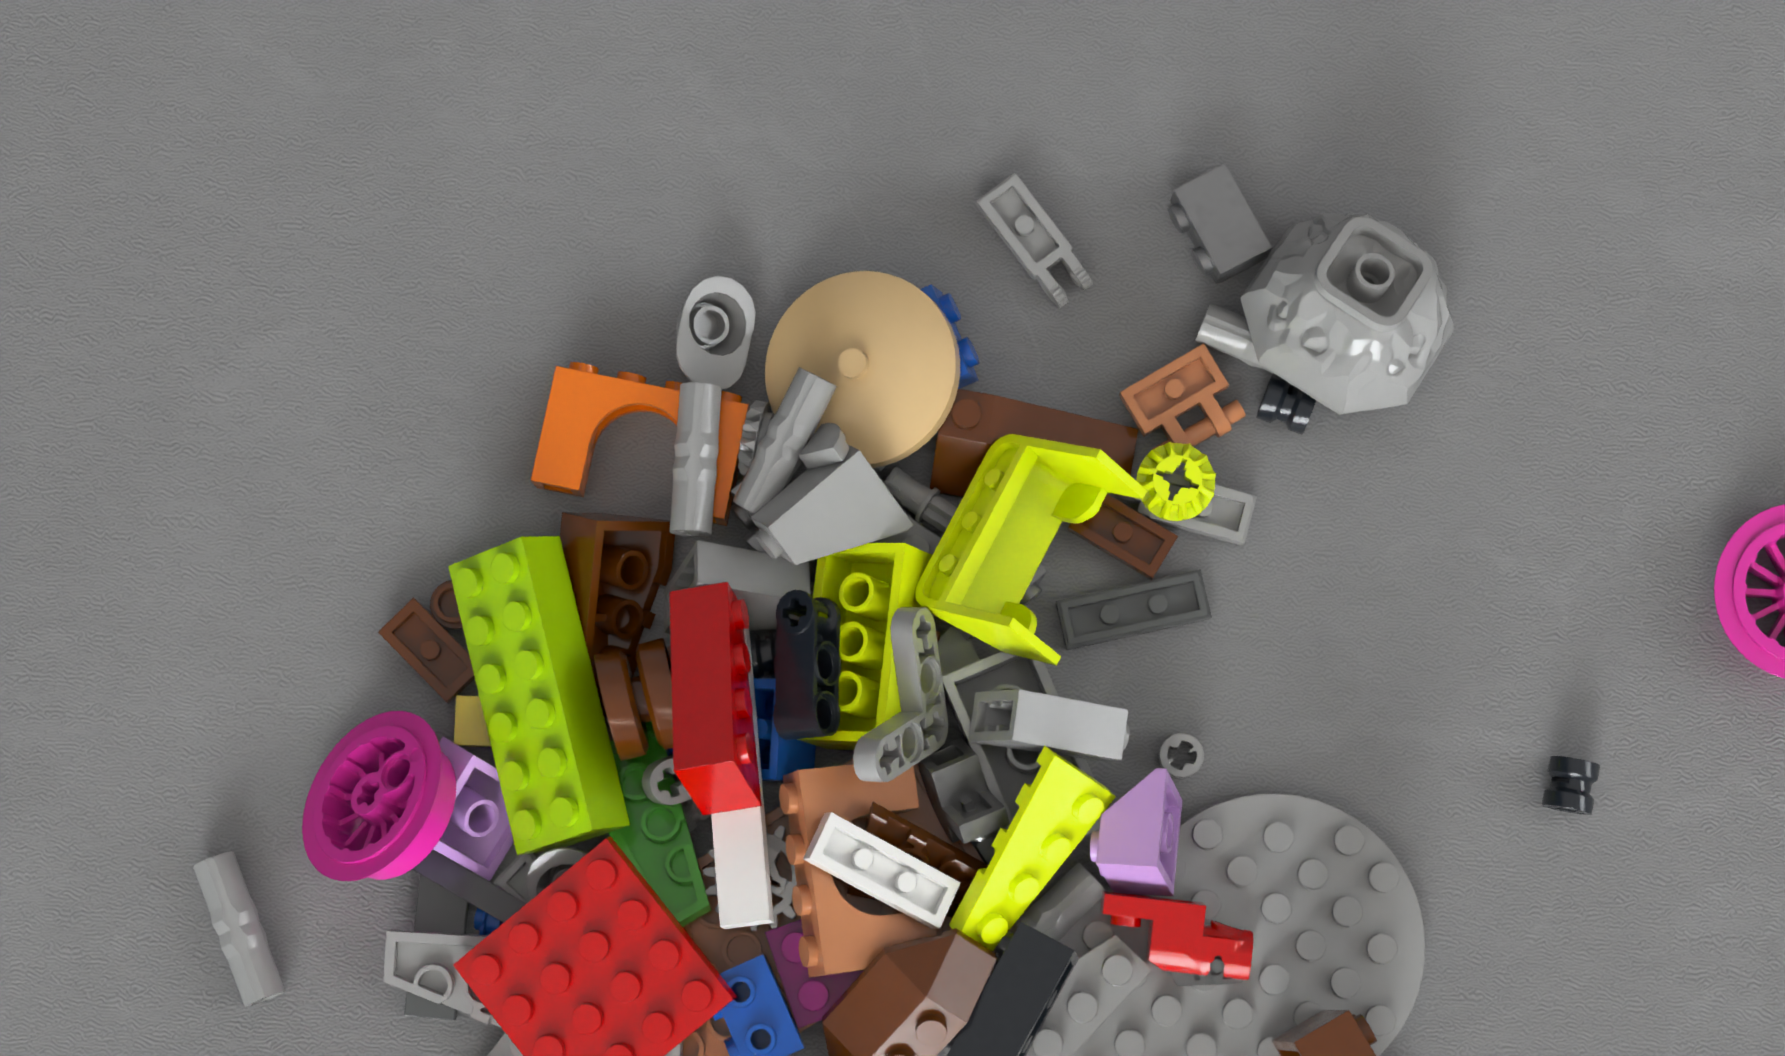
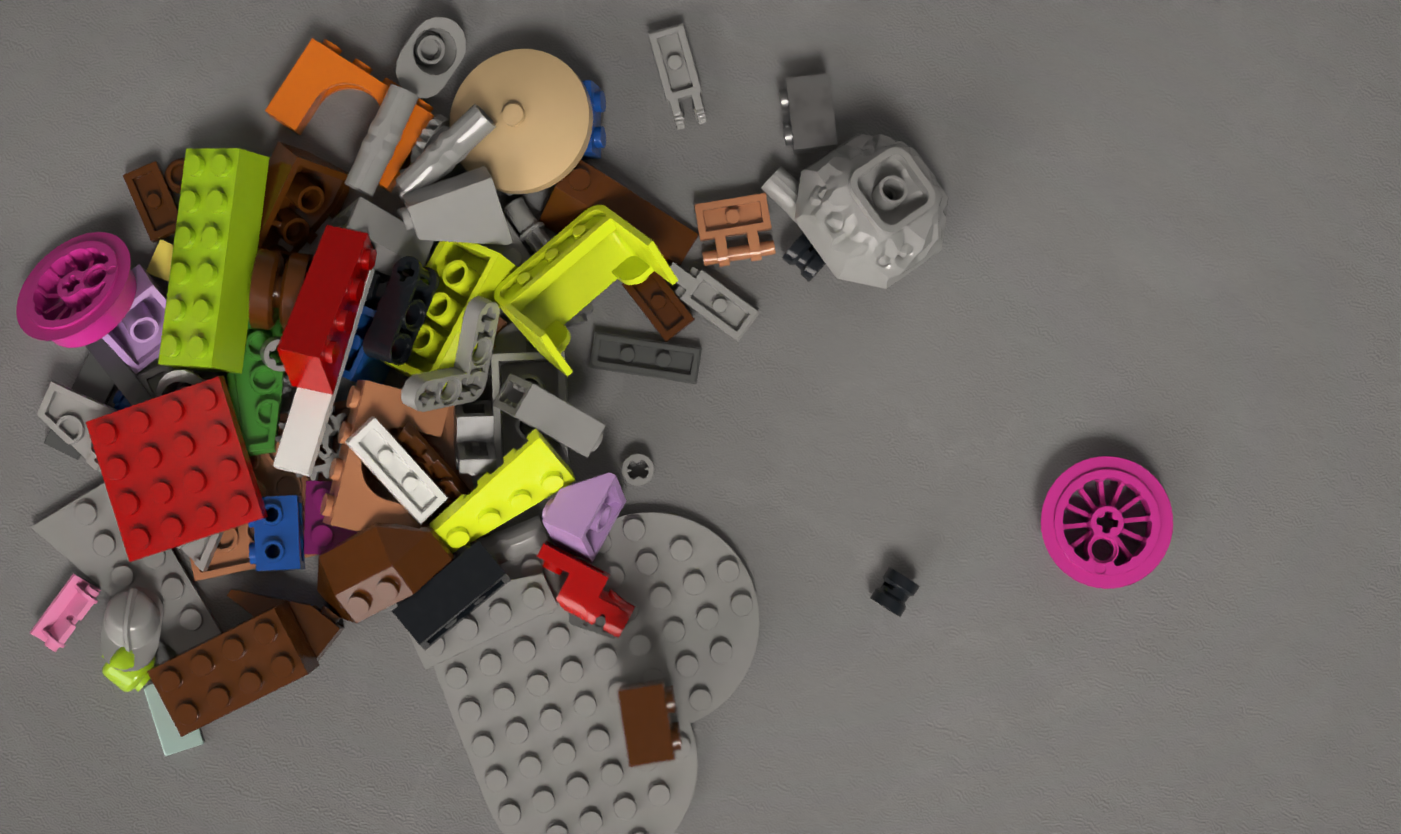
camera: 15 degrees right, 5 degrees up
(825, 447) = (471, 166): light grey tile -> none
(1186, 502) = (707, 298): neon yellow gear -> none

